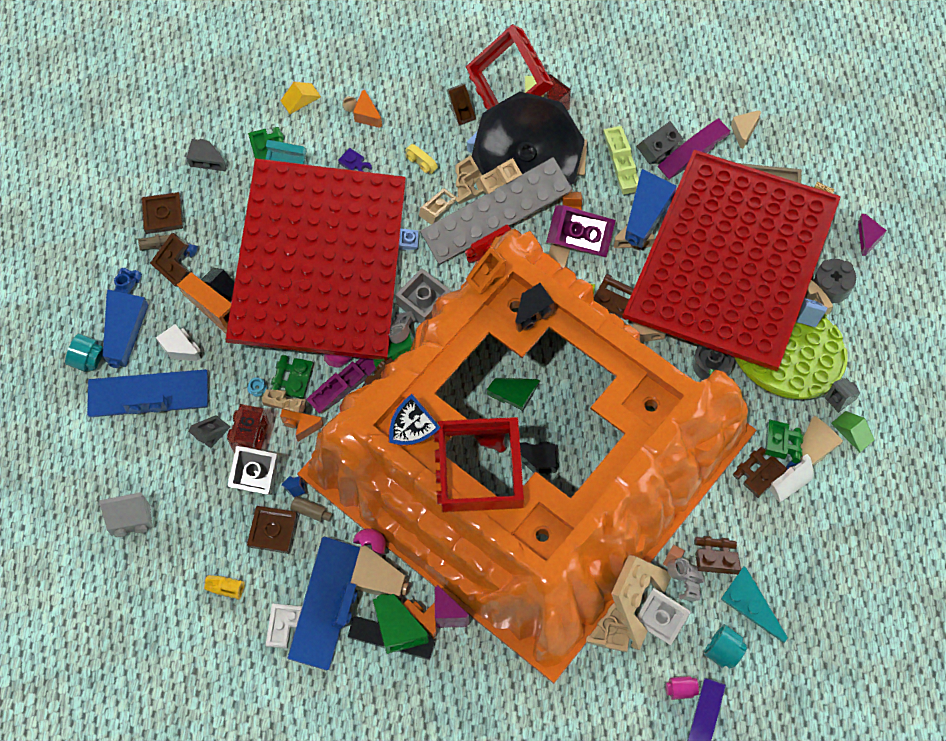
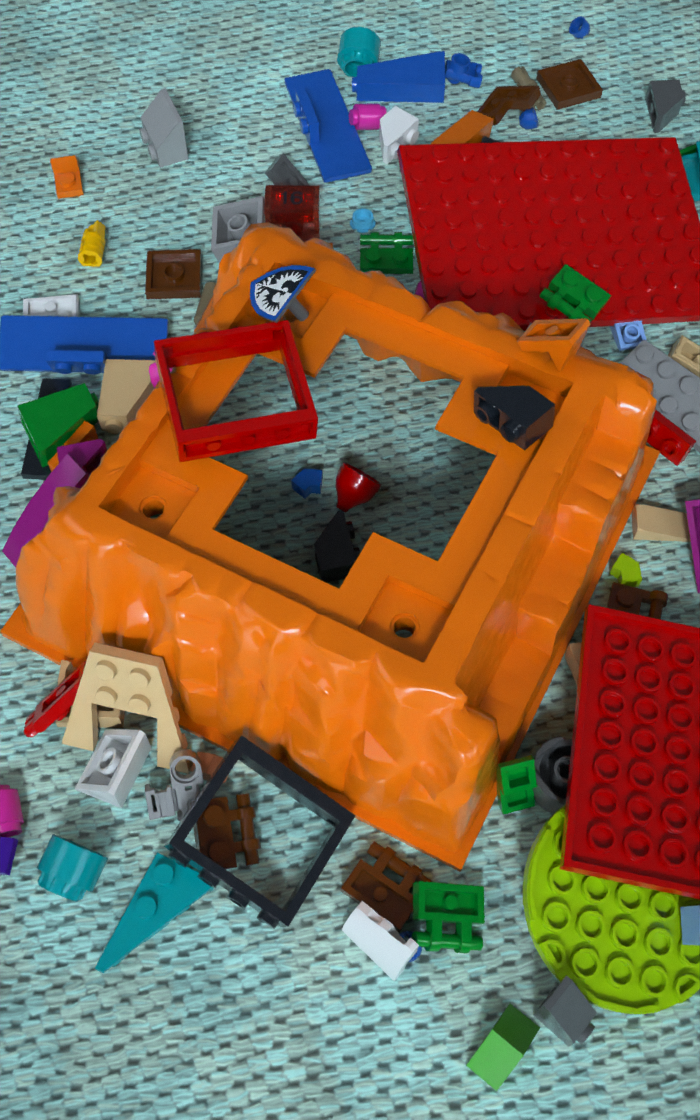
camera: 75 degrees right, 5 degrees down
(104, 193) = (579, 32): none -> blue hinge
(142, 600) = (67, 176): none -> orange slope
(154, 360) = (366, 116): none -> dark pink brick
(278, 399) = (345, 238): tan slope -> none
(379, 257) = (576, 290): none -> green plate
(479, 466) = (307, 482): none -> blue piece
(479, 636) = (35, 515): none -> magenta slope
(512, 390) = (434, 502): green slope -> none
(617, 641) = (55, 705): none -> red hinge
(707, 557) = (291, 784): none -> black window
(819, 440) = (463, 980): tan slope -> none

